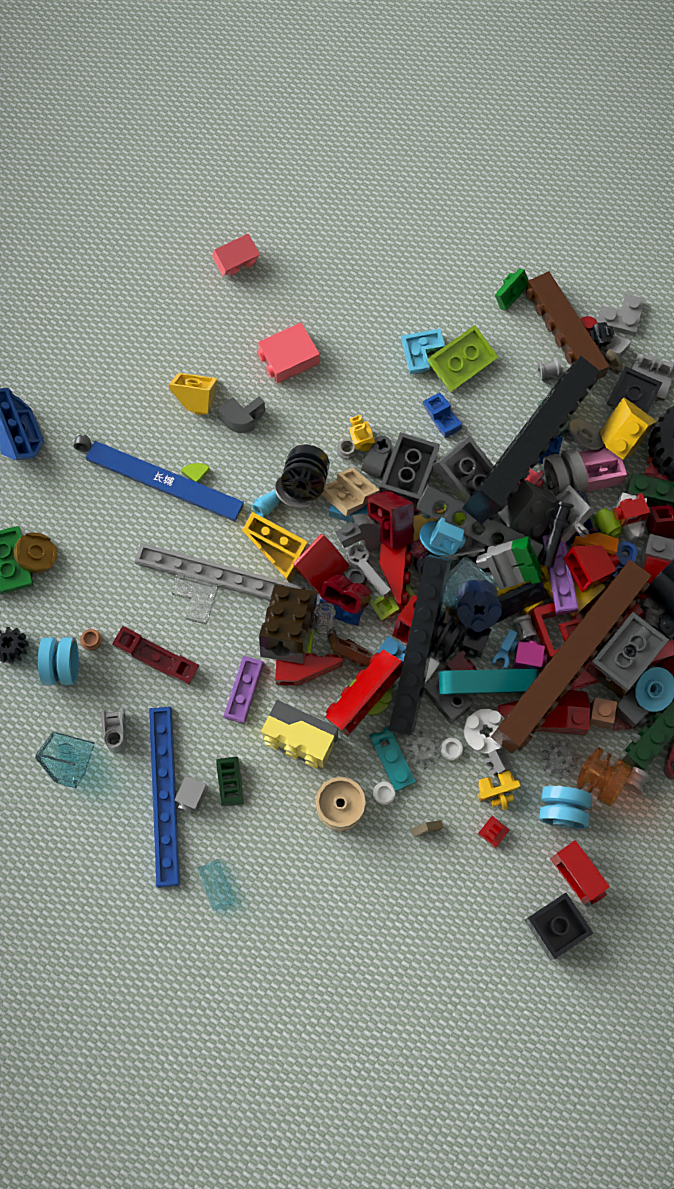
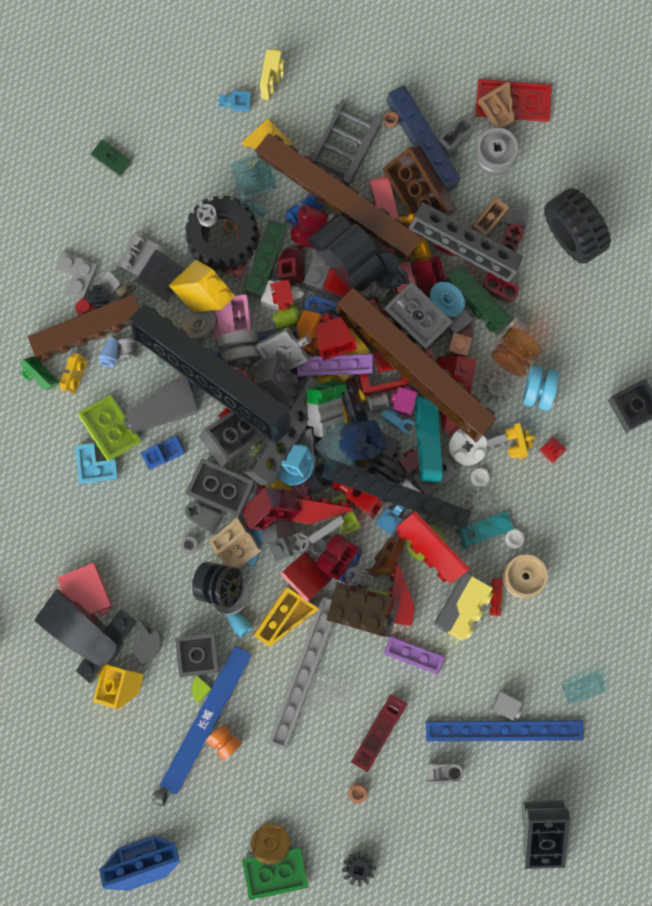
camera: 85 degrees left, 10 degrees up
(48, 842) = (545, 833): none -> black brick
(58, 661) = (380, 826): medium azure wheel -> none
(65, 758) = (467, 818): clear light blue slope -> none
(143, 495) = (224, 741): none -> orange wheel
(226, 762) = (480, 671): dark green slope -> none
(229, 462) = (197, 655): none -> dark grey brick
(246, 352) = (84, 632): none -> black slope
(314, 776) = (496, 599): none -> red axle
(361, 434) = (178, 529): yellow hips -> none
(427, 827) = (547, 505): dark tan tile -> none
(491, 407) = (163, 407): none -> flat silver slope
(517, 323) = (76, 365): none -> yellow hinge
(542, 352) = (109, 354): none -> light blue cone
(557, 527) = (295, 360): black pin -> none
(580, 873) = (594, 382): red window -> none

